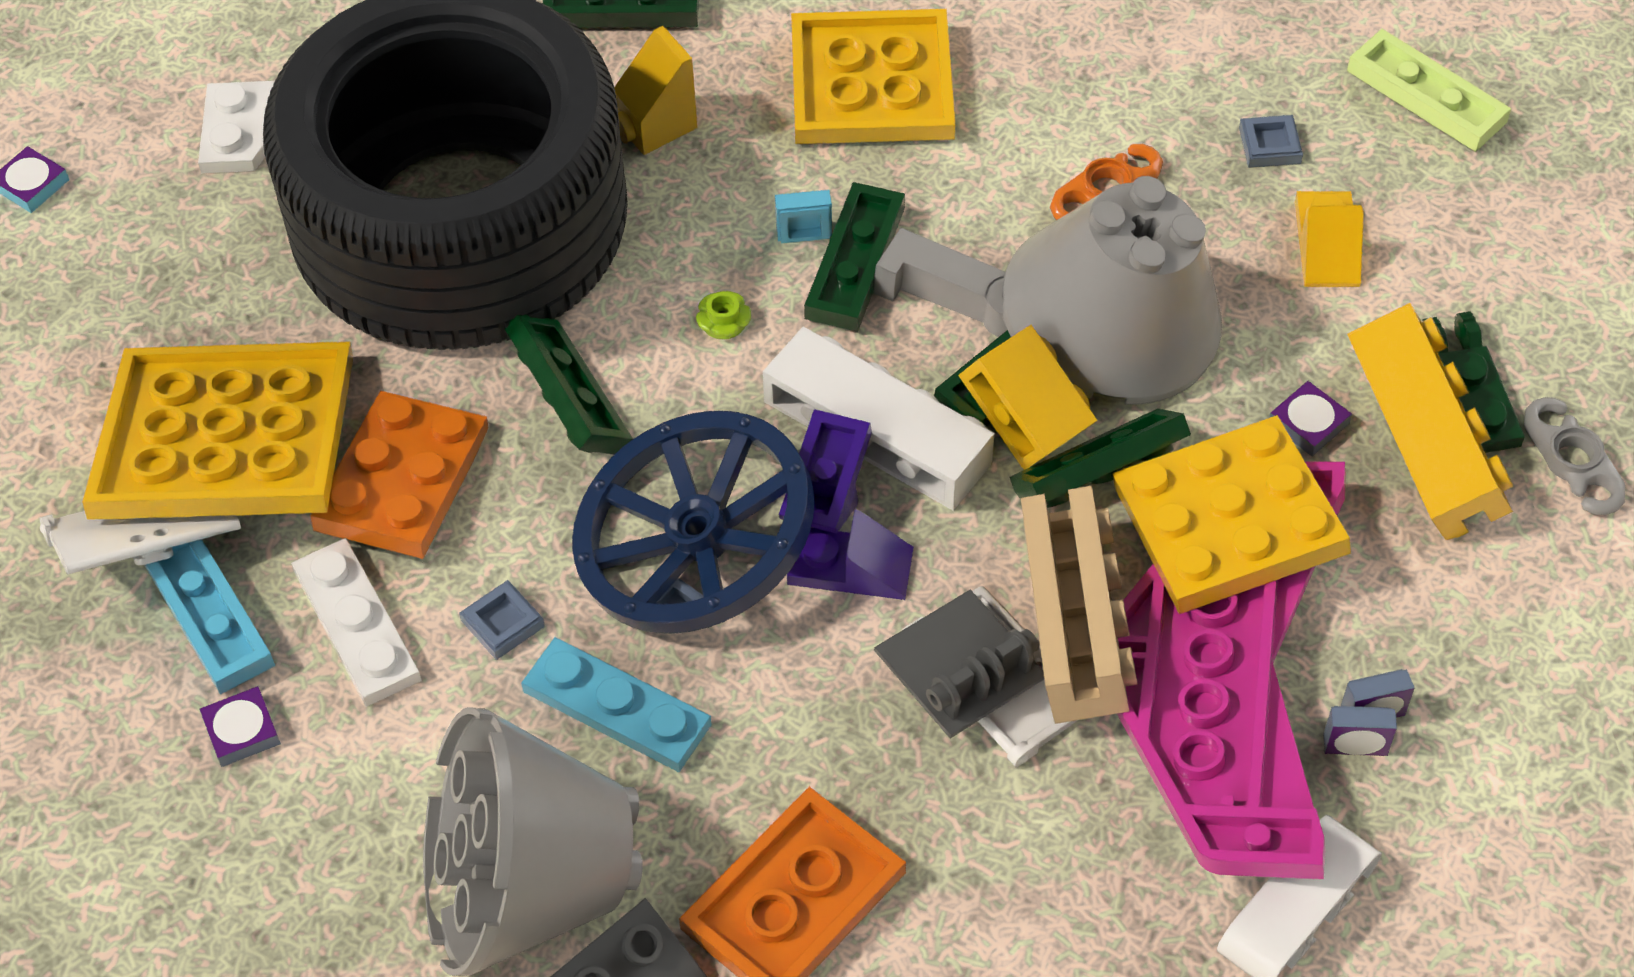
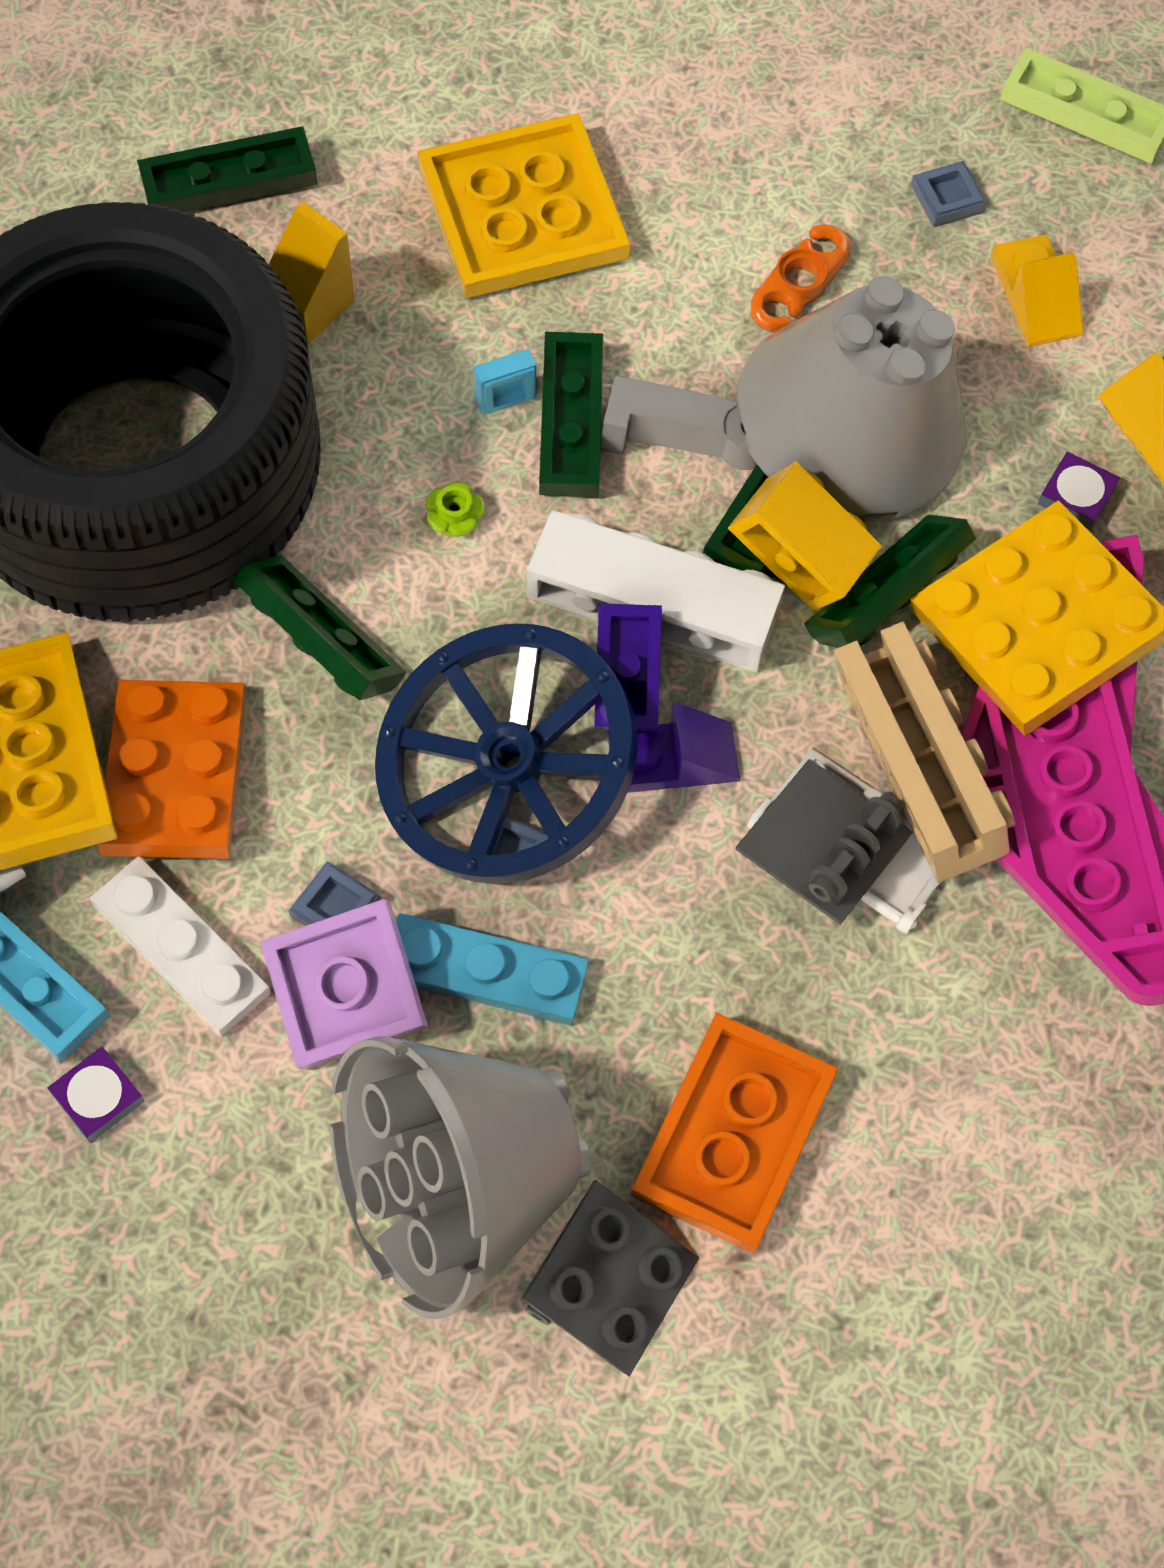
camera: 20 degrees left, 10 degrees up
(486, 666) = (343, 983): none -> lavender plate

